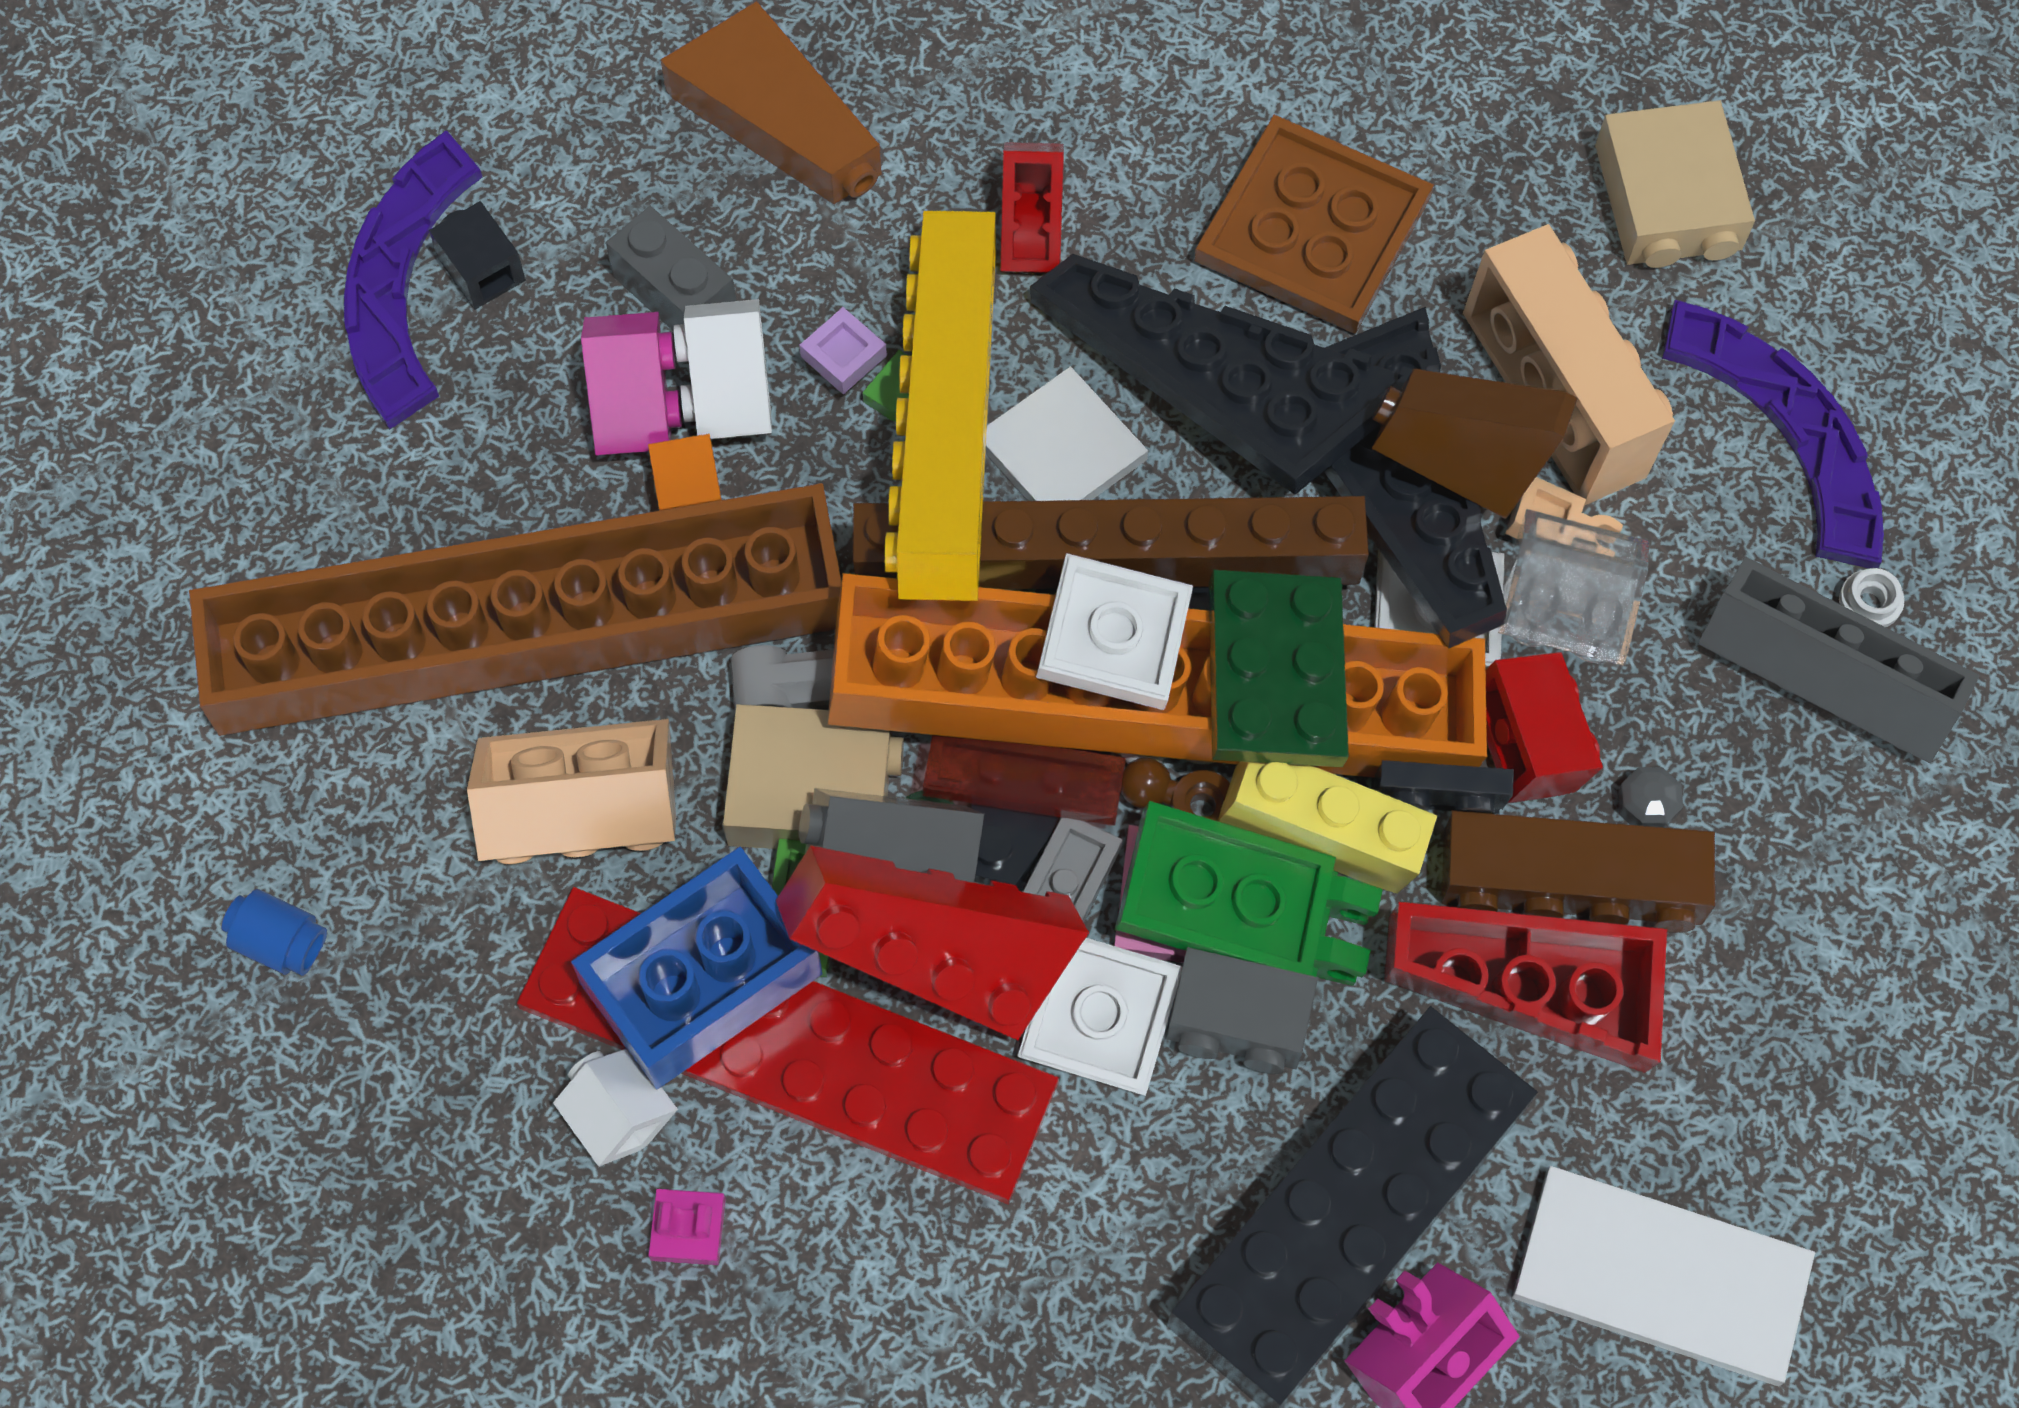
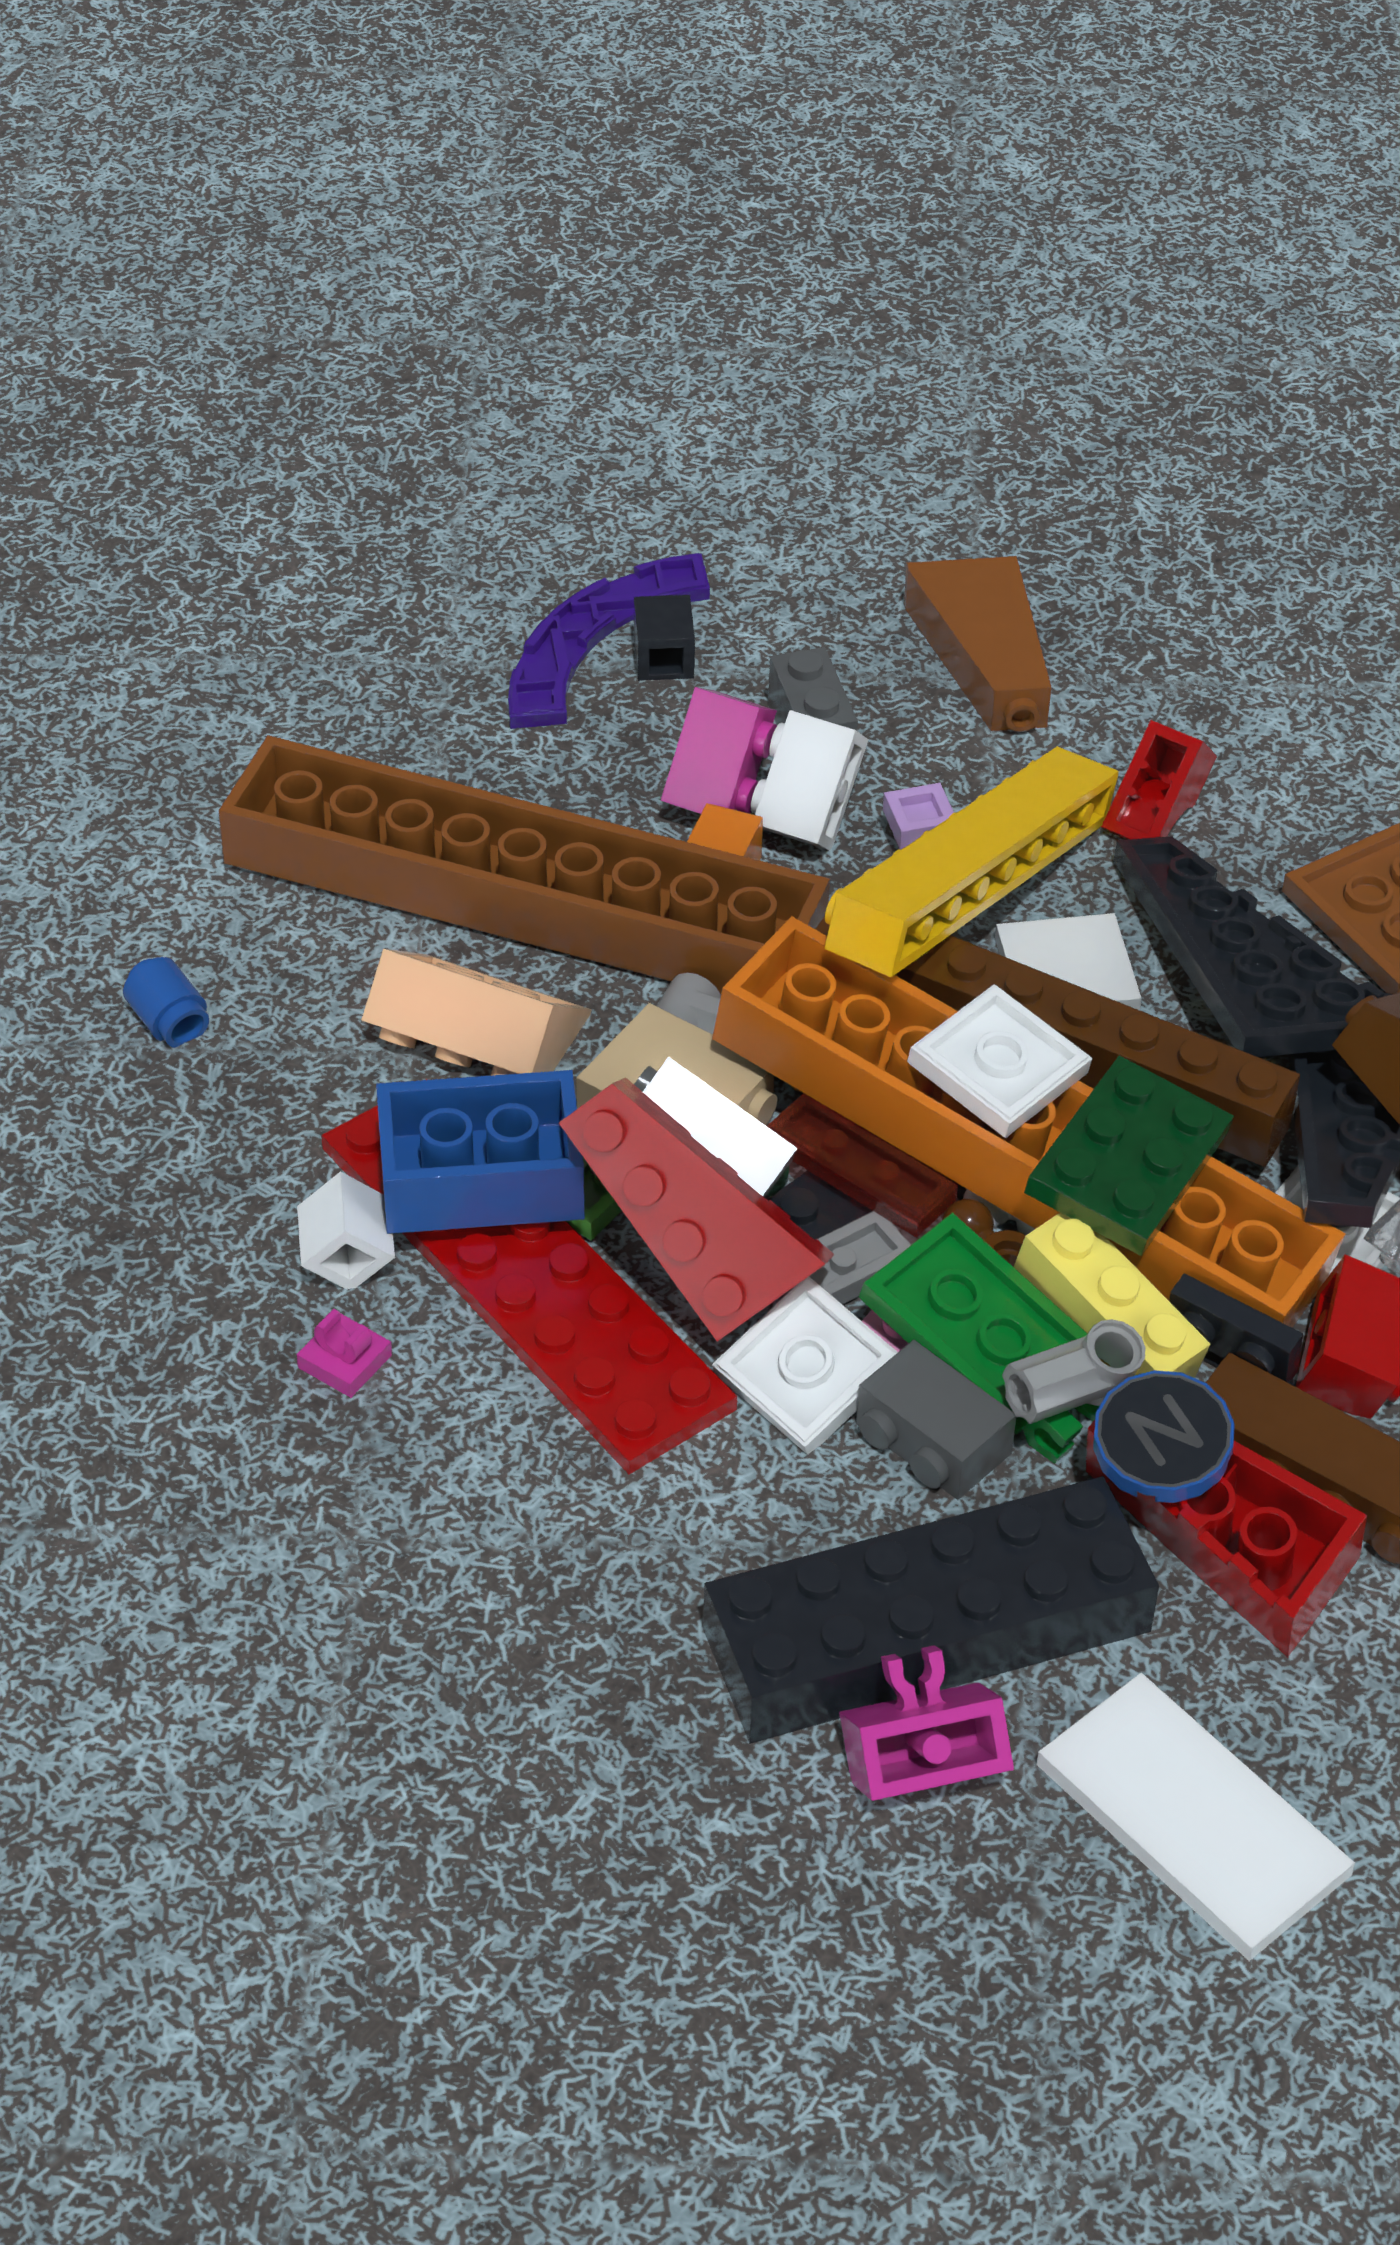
camera: 30 degrees right, 20 degrees down
(1350, 917) = (1073, 1371): none -> light grey piece
(1467, 947) = (1163, 1436): none -> black tile

